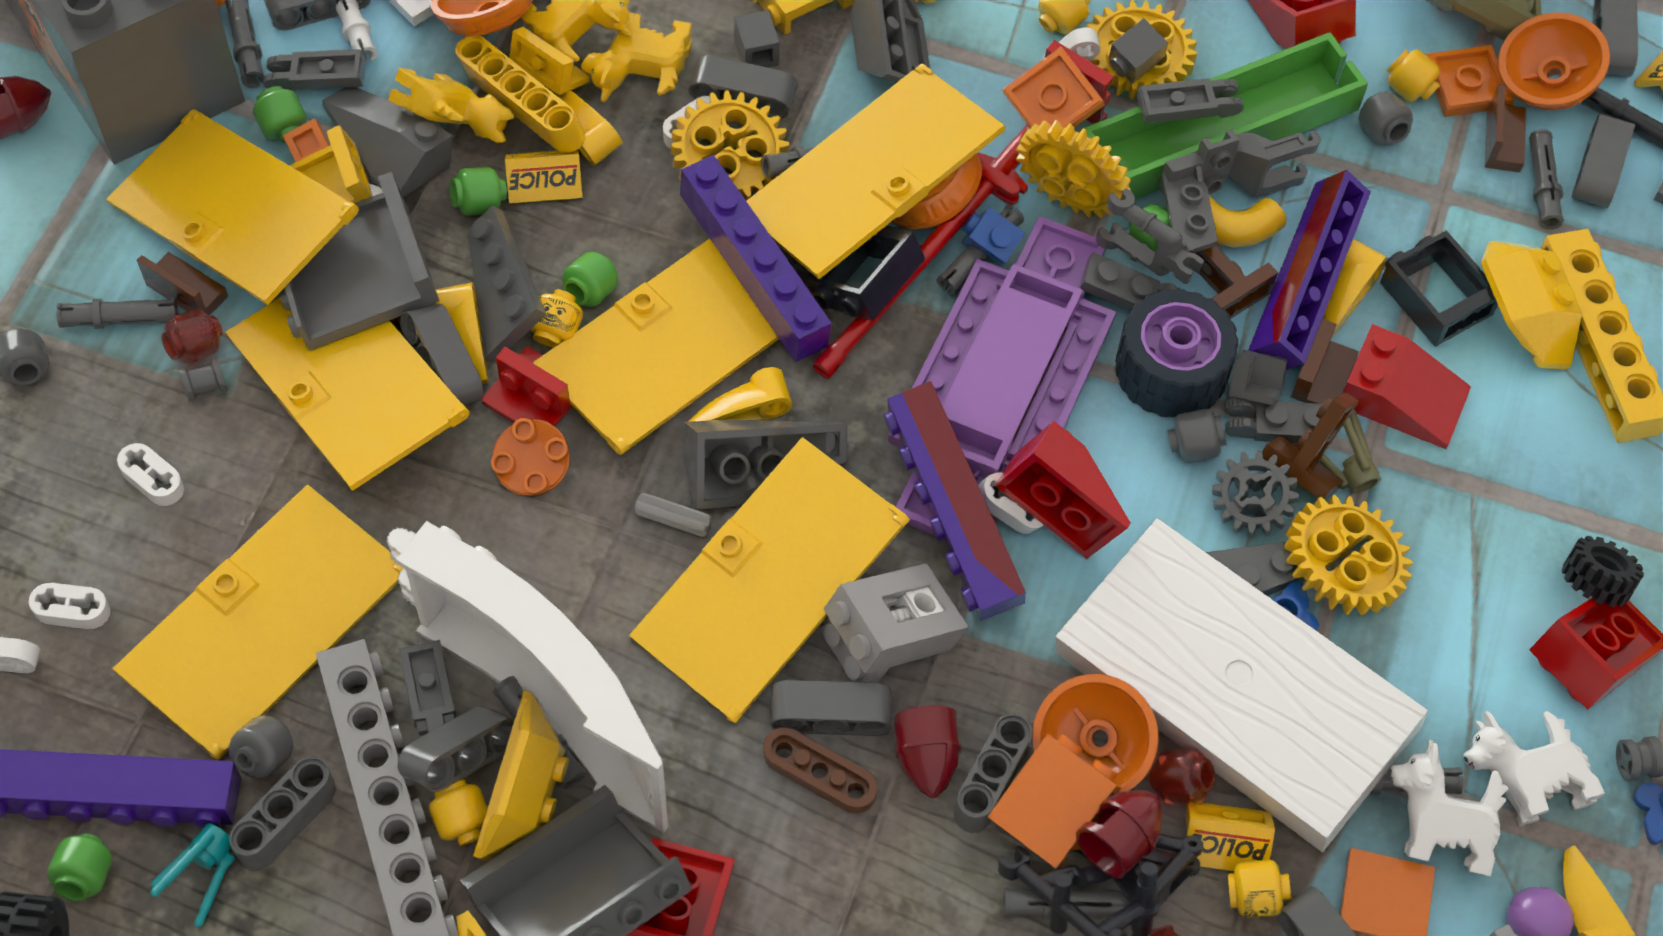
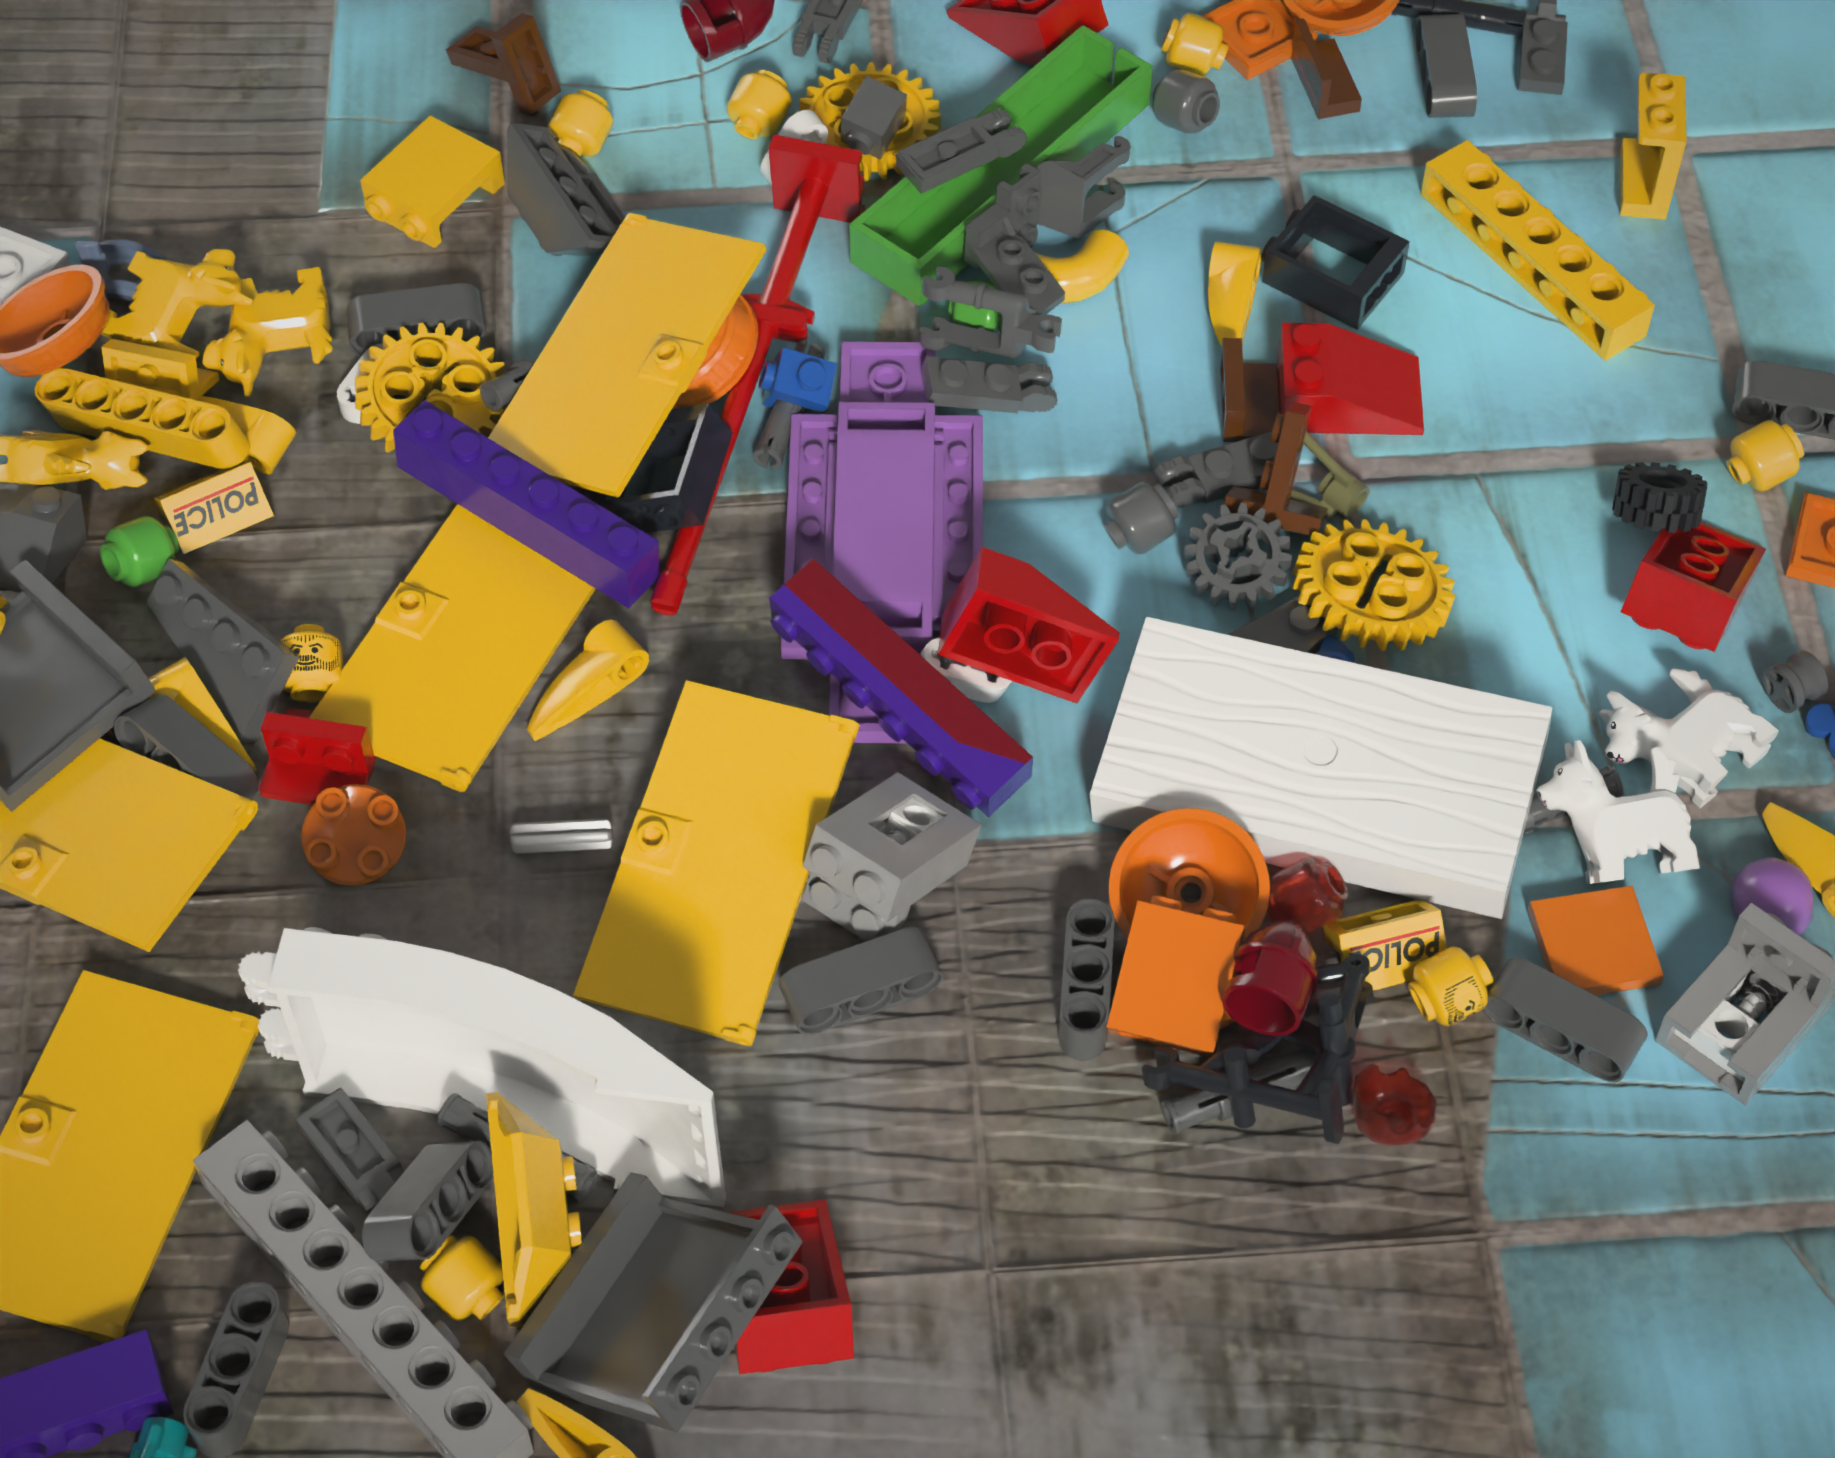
camera: 20 degrees left, 5 degrees down
(261, 746) = (172, 1300): dark grey head -> none
(590, 279) = (332, 600): bright green head -> none
(734, 457) = (610, 742): dark grey wedge -> none
(757, 39) = (406, 259): dark grey brick -> none
(808, 756) = (861, 1044): reddish brown plate -> none
(928, 746) = (997, 977): dark red helmet -> none
(1053, 92) = (801, 199): orange tile -> none
(1071, 167) = (829, 274): yellow gear -> none
(1176, 352) = (1074, 434): black wheel -> none
(1235, 289) = (1102, 342): reddish brown bracket -> none
(1258, 377) = (1180, 428): dark grey panel -> none
(1311, 269) = (1183, 295): dark purple brick -> none
(1534, 301) = (1448, 236): yellow wedge -> none
(1547, 189) = (1400, 117): dark grey pin -> none

